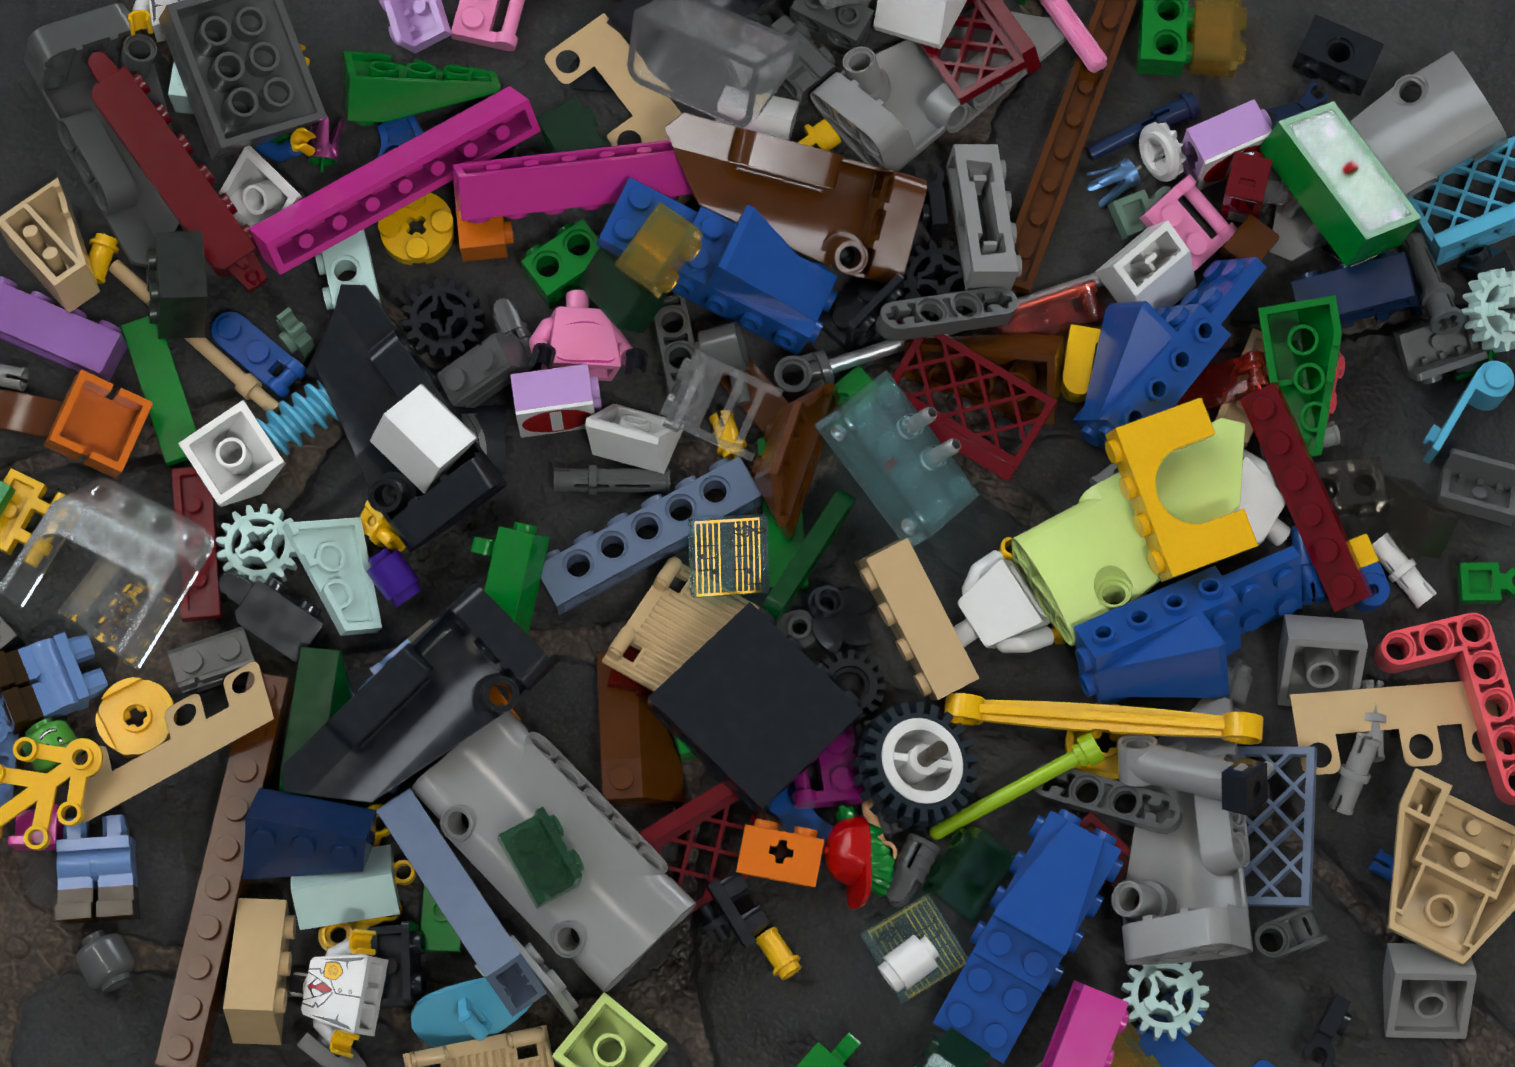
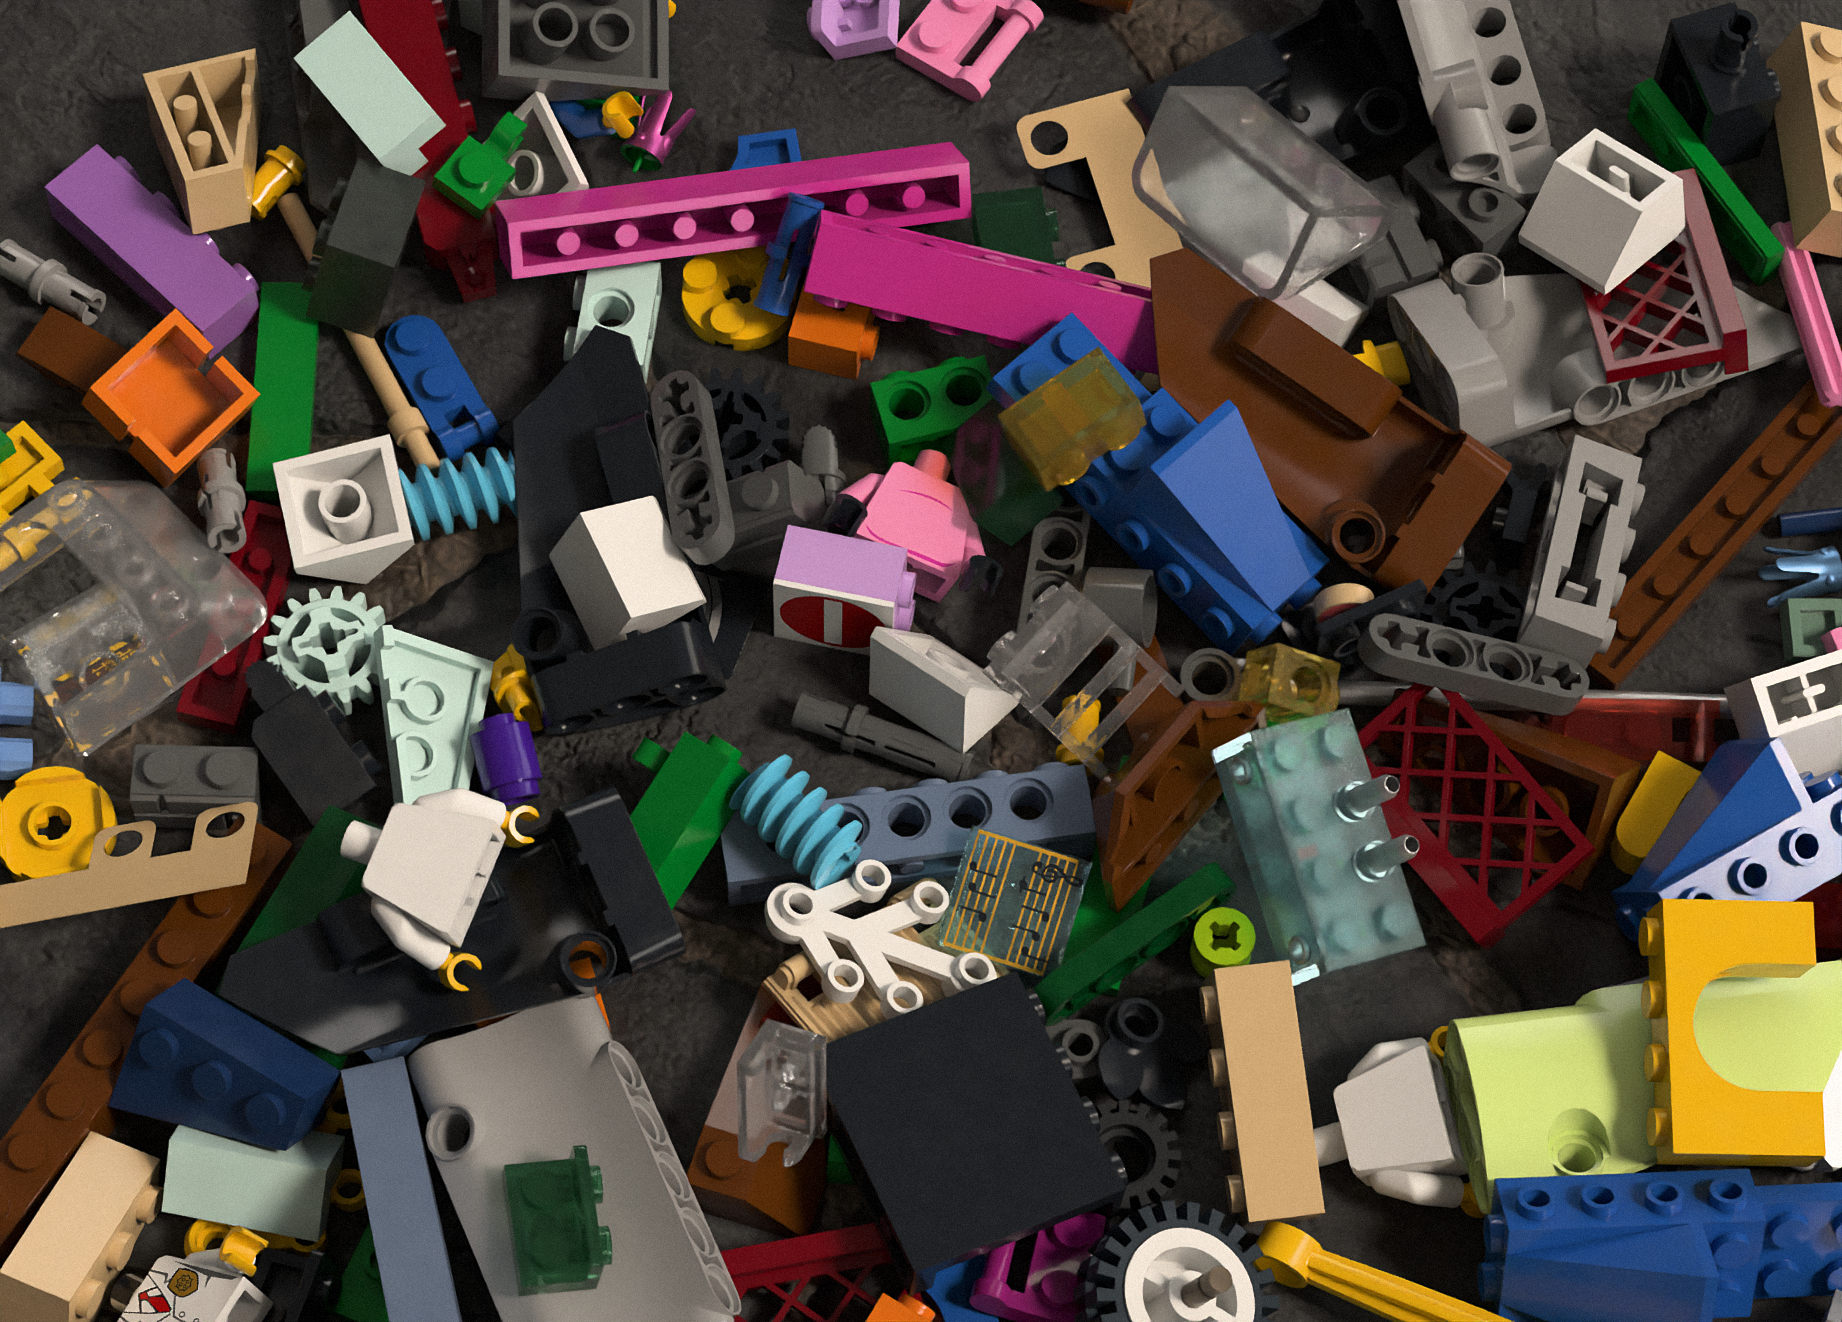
camera: 20 degrees right, 10 degrees down
(146, 187) = (371, 94): none -> light aqua piece
(155, 476) = (221, 500): none -> light grey pin
(230, 211) = (480, 172): none -> green plate
(294, 334) = (501, 376): sand green plate -> none
(387, 674) = (433, 869): none -> white torso
(390, 90) = (769, 90): green wedge -> none
(432, 359) = (699, 463): none -> dark grey beam
(441, 172) = (775, 293): none -> blue pin
(586, 556) = (797, 822): none -> medium azure piece
(643, 728) = (781, 1092): none -> clear hinge
(657, 612) = (871, 938): none -> white plant
(831, 369) = (1269, 676): none -> clear yellow brick
(854, 301) = (1340, 599): none -> tan tile
(855, 542) = (1213, 953): none -> lime wheel

